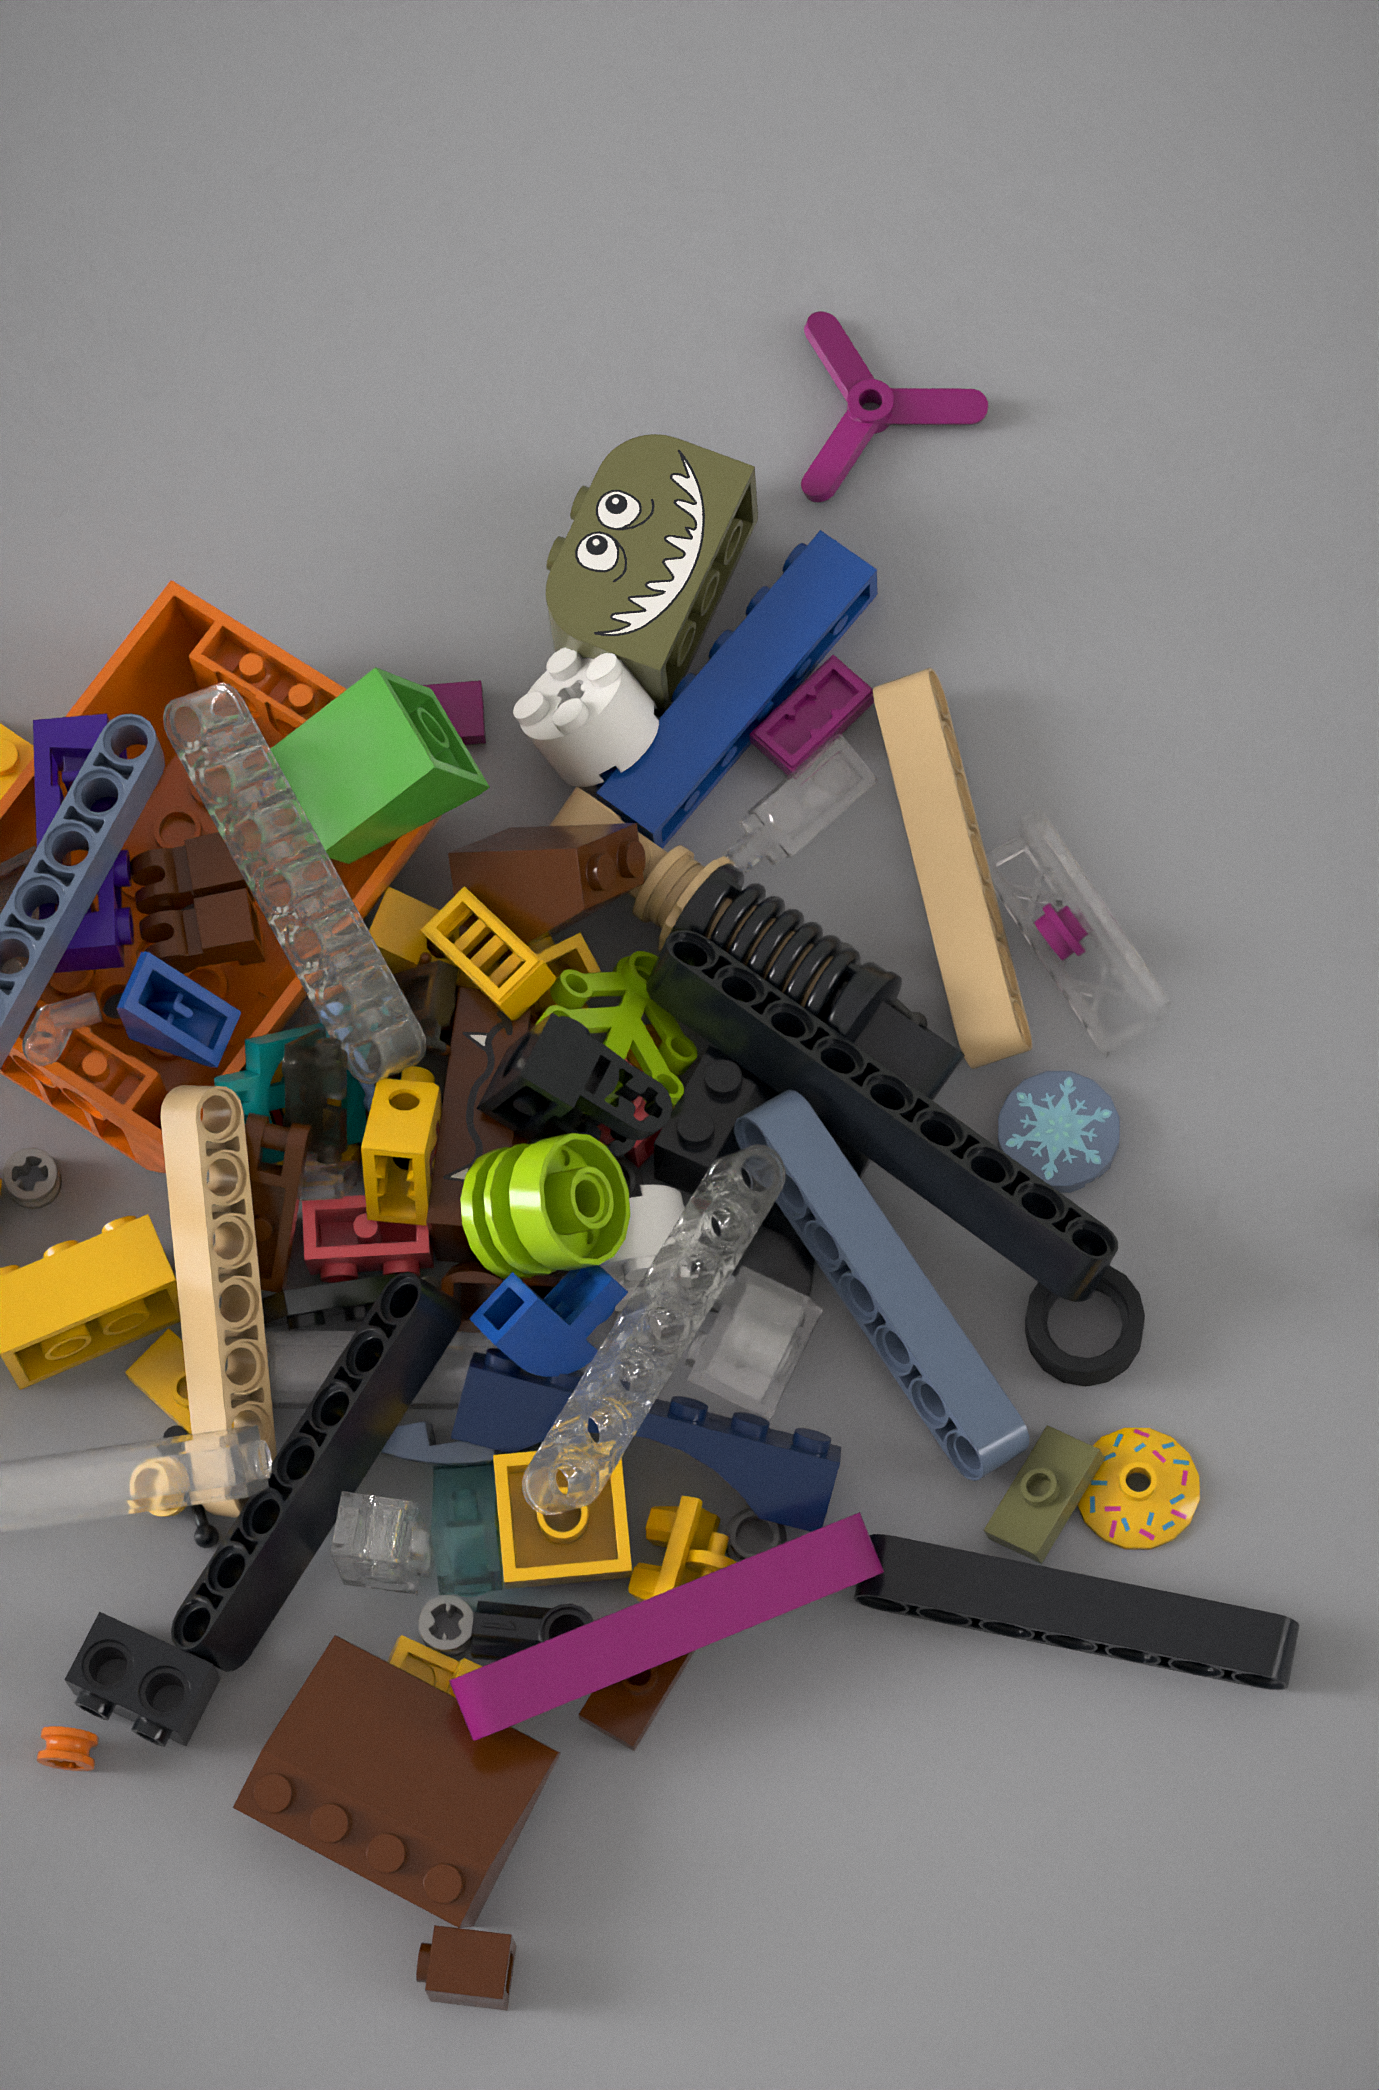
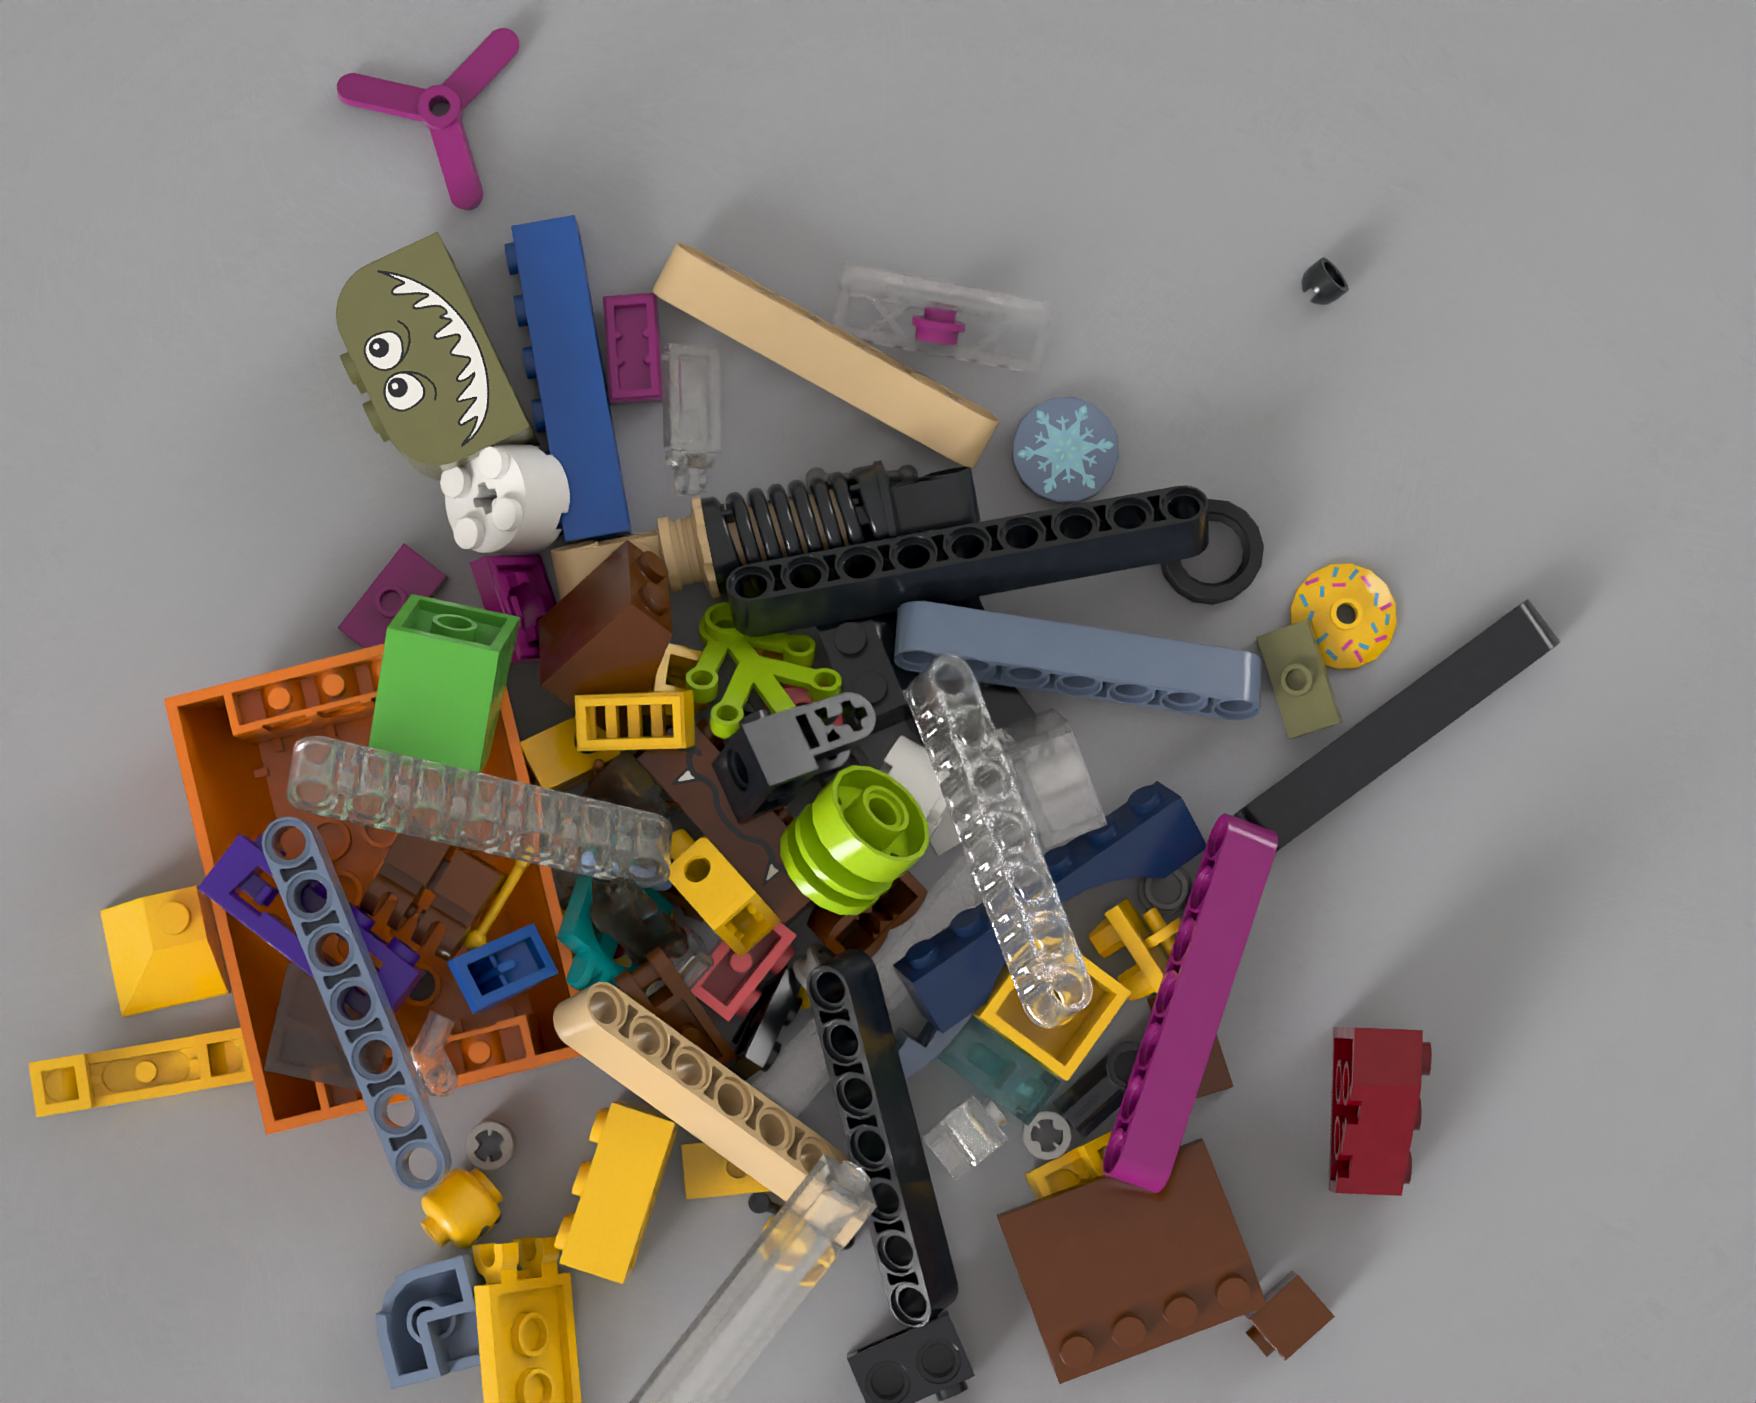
camera: 55 degrees left, 15 degrees up
(279, 961) = (477, 937): none -> yellow hinge
(515, 772) = (517, 588): none -> magenta piece
(549, 1332) = (932, 909): blue brick -> none
(742, 1847) = (1375, 1108): none -> dark red brick

